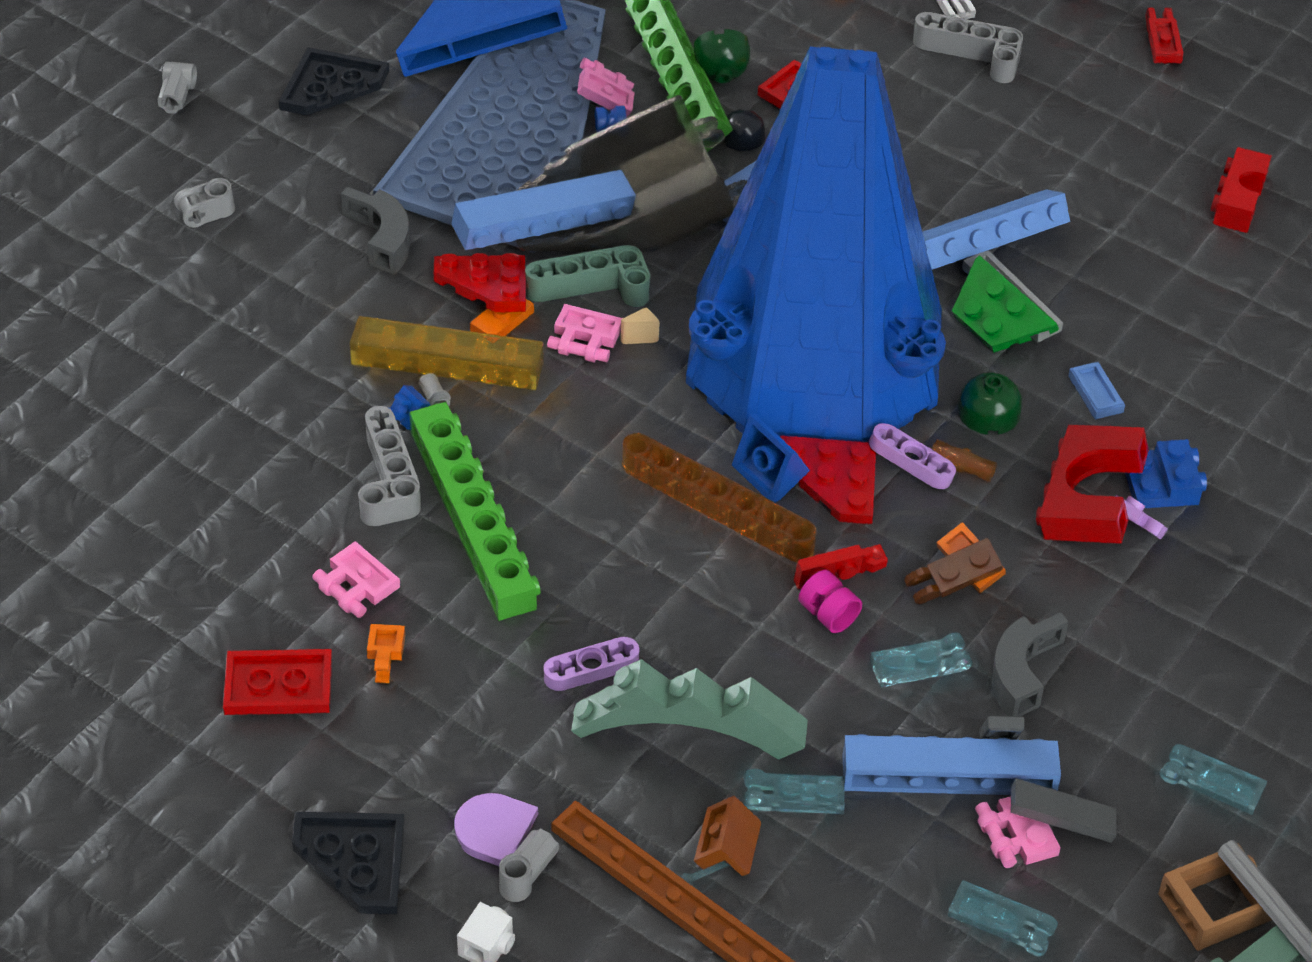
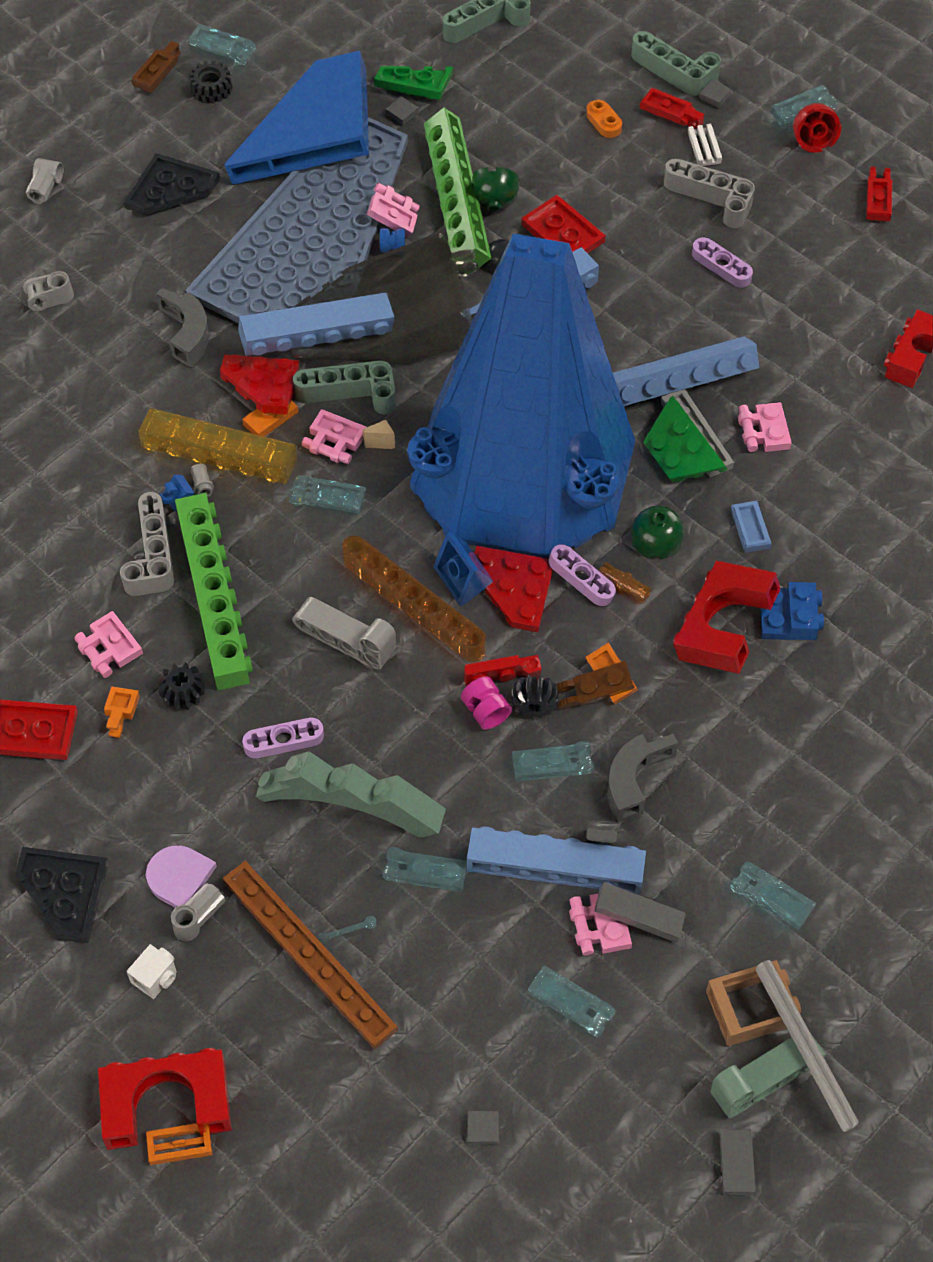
camera: 10 degrees right, 10 degrees up
(456, 616) = (181, 686): none -> black gear
(589, 395) = (327, 494): none -> clear light blue plate
(647, 543) = (362, 642): none -> light grey beam
(728, 835) = (363, 905): dark orange panel -> none
(887, 588) = (534, 696): none -> black gear
(1017, 126) = (727, 271): none -> lavender beam
(1096, 283) = (772, 427): none -> bright pink plate
(1137, 516) = (758, 648): lavender plate -> none

